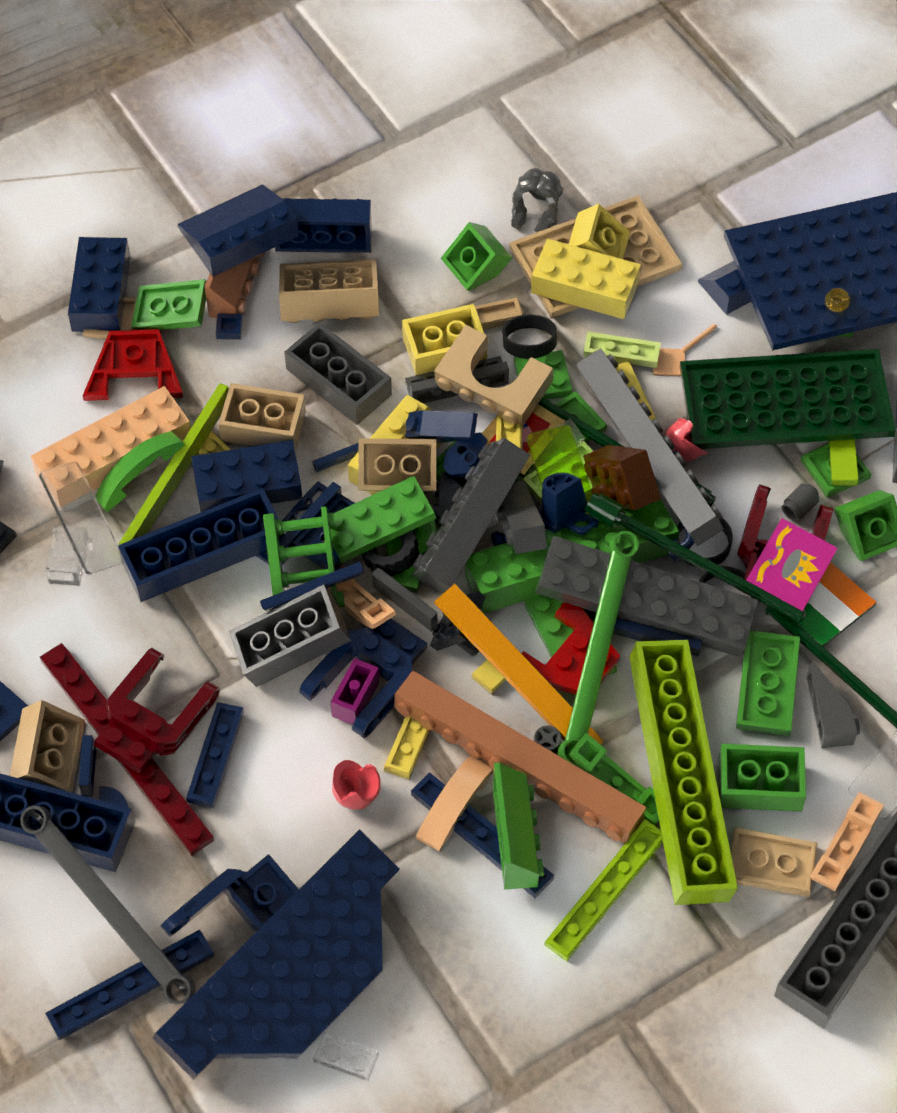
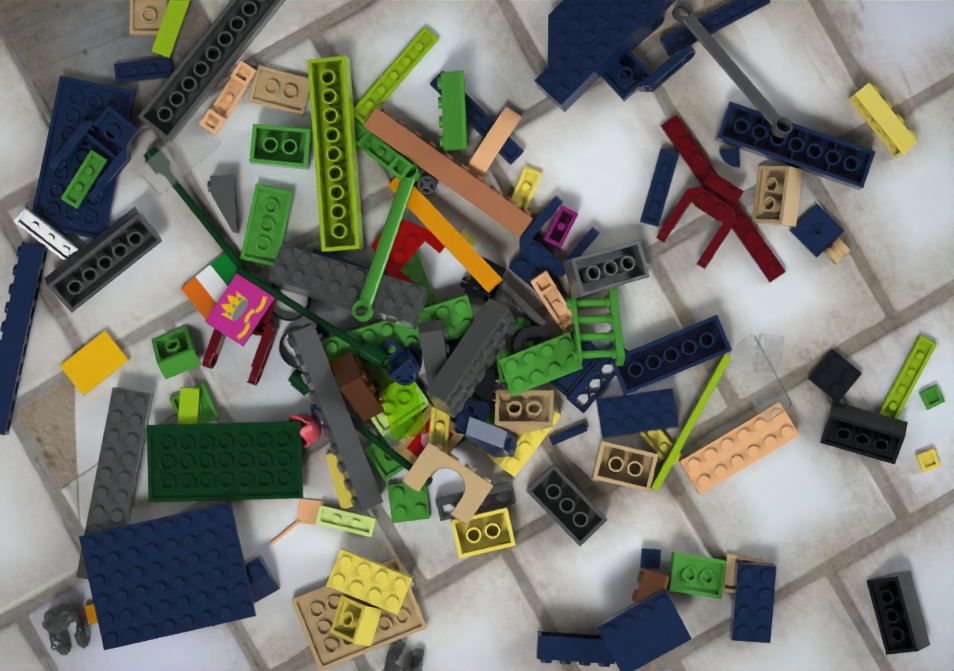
camera: 175 degrees left, 30 degrees up
(87, 766) = (748, 181): dark blue tile -> none
(132, 356) = (724, 533): red wing -> none
(132, 464) = (720, 425): bright green slope -> none
(328, 290) = (571, 591): tan slope -> none
(328, 580) = (589, 302): dark blue tile -> none
(355, 785) = (561, 154): coral helmet -> none
(475, 256) = (454, 616): bright green slope -> none
(498, 313) = (440, 563): tan tile -> none
(529, 351) = (417, 552): black tyre -> none
(800, 501) = (225, 374): dark grey brick -> none
(839, 295) = (170, 537): clear yellow plate -> none

